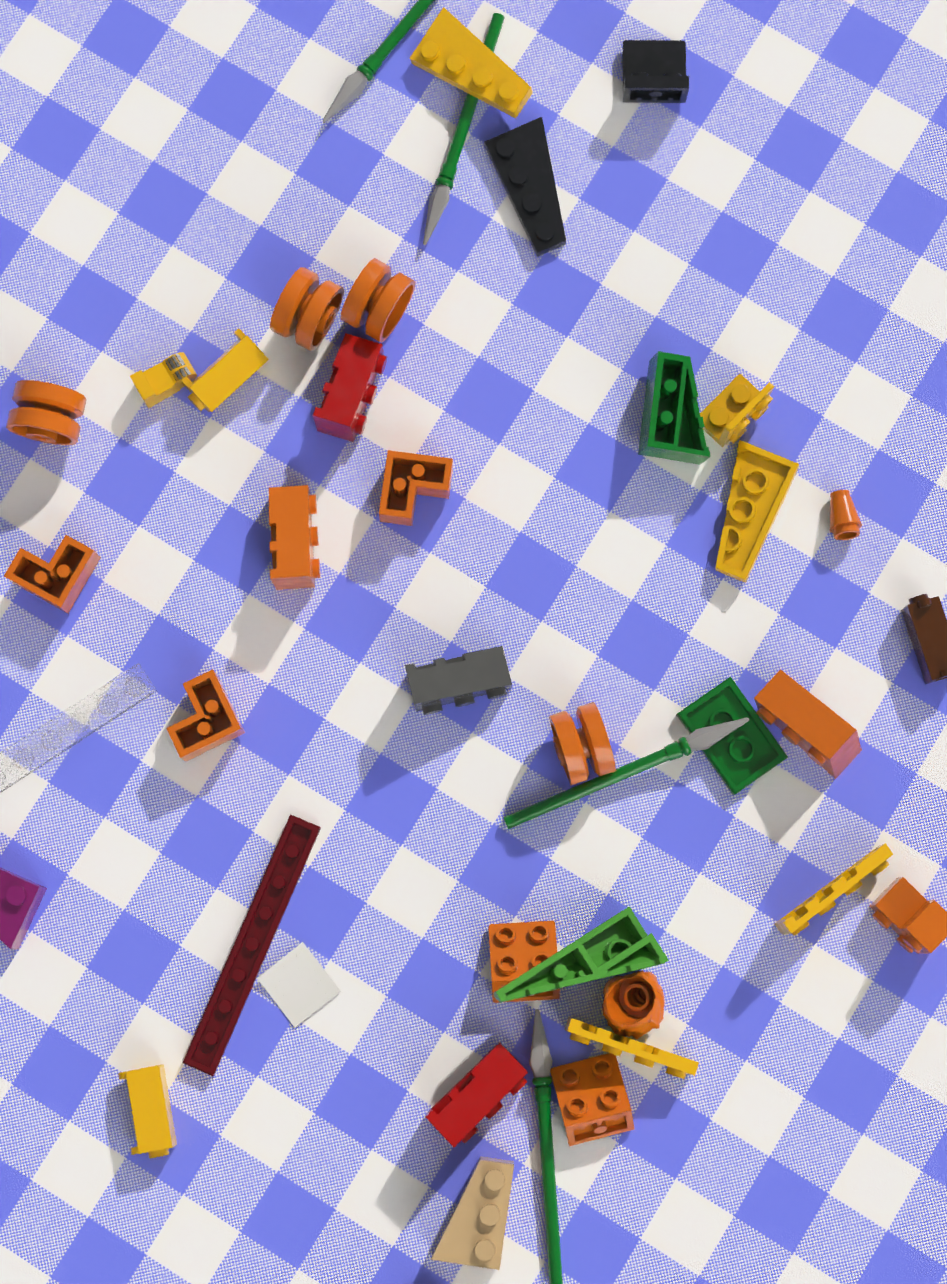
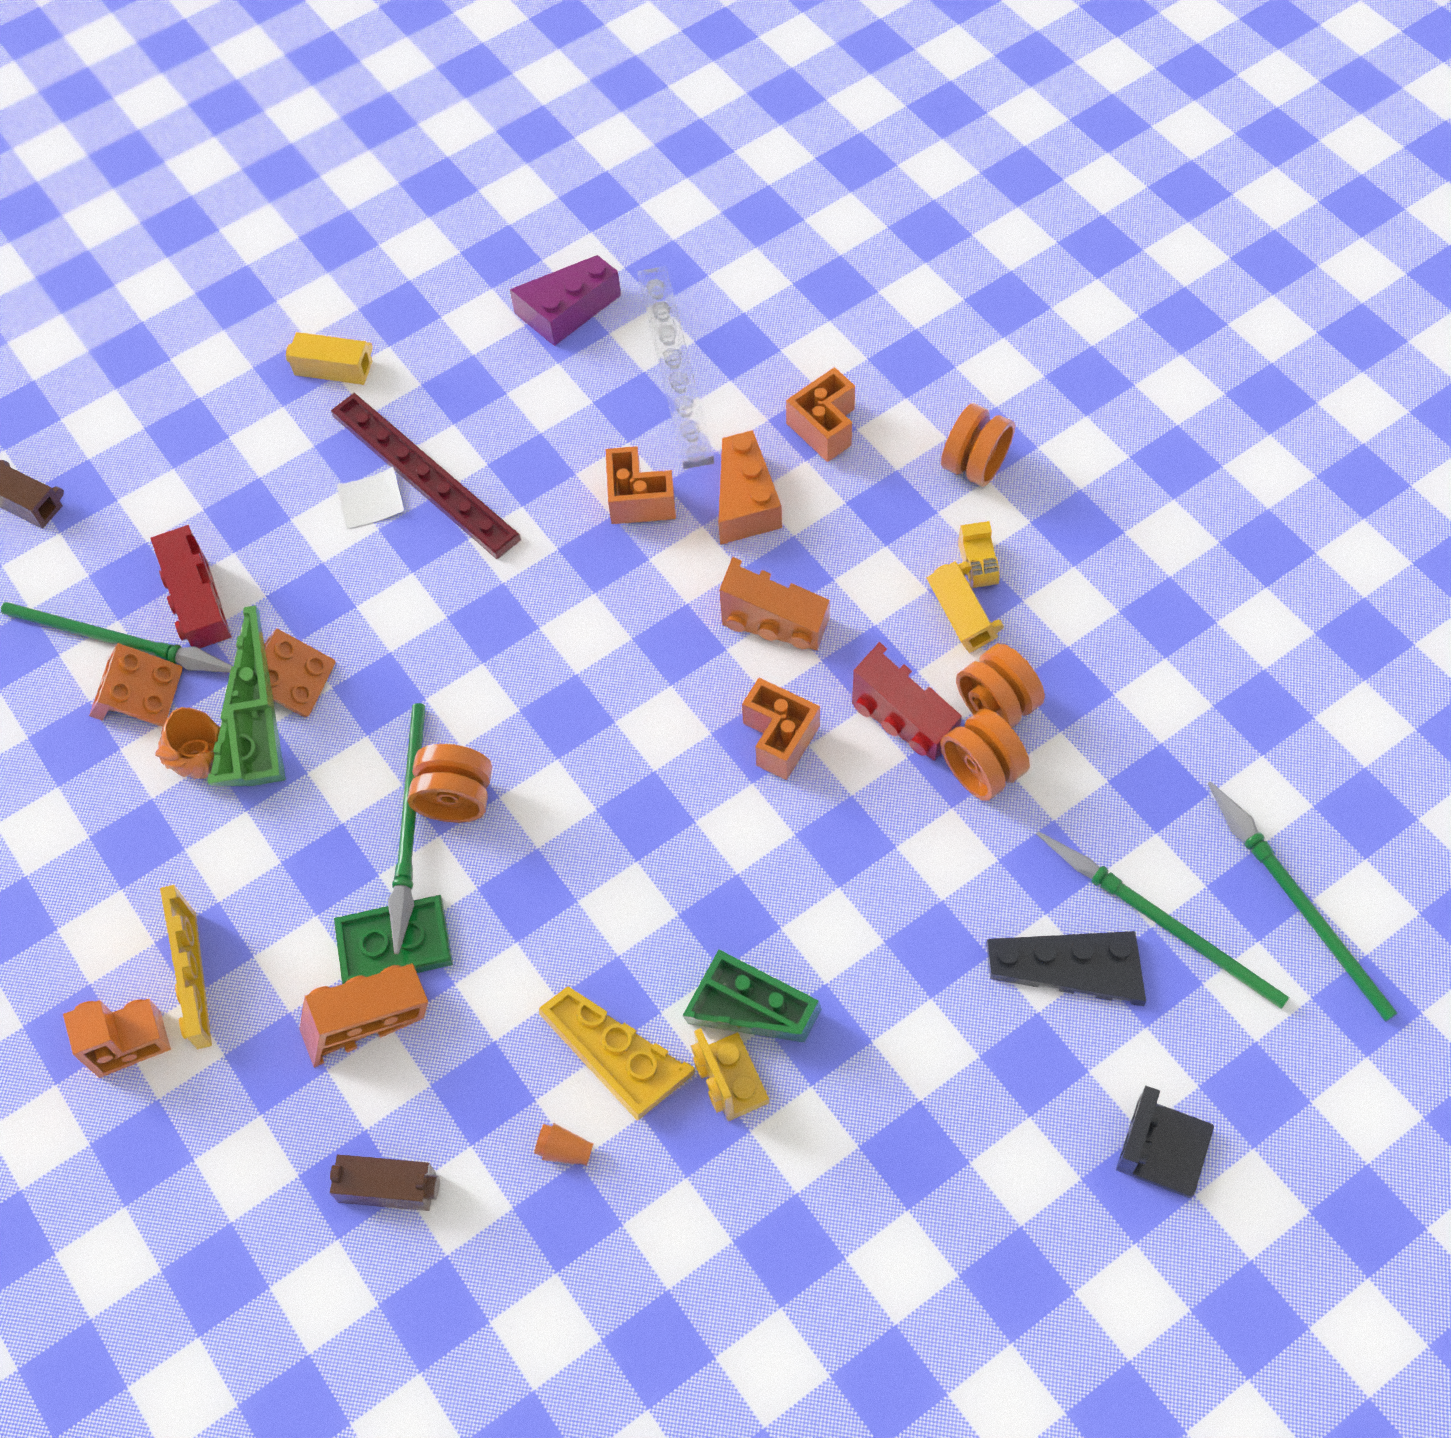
camera: 115 degrees right, 20 degrees down
(165, 616) = (746, 490): none -> orange wedge
(459, 680) = (570, 700): dark grey wedge -> none
(468, 64) = (1230, 944): yellow wing -> none
(479, 1219) = (91, 562): tan wedge -> none
(644, 1053) = (141, 742): yellow wing -> none

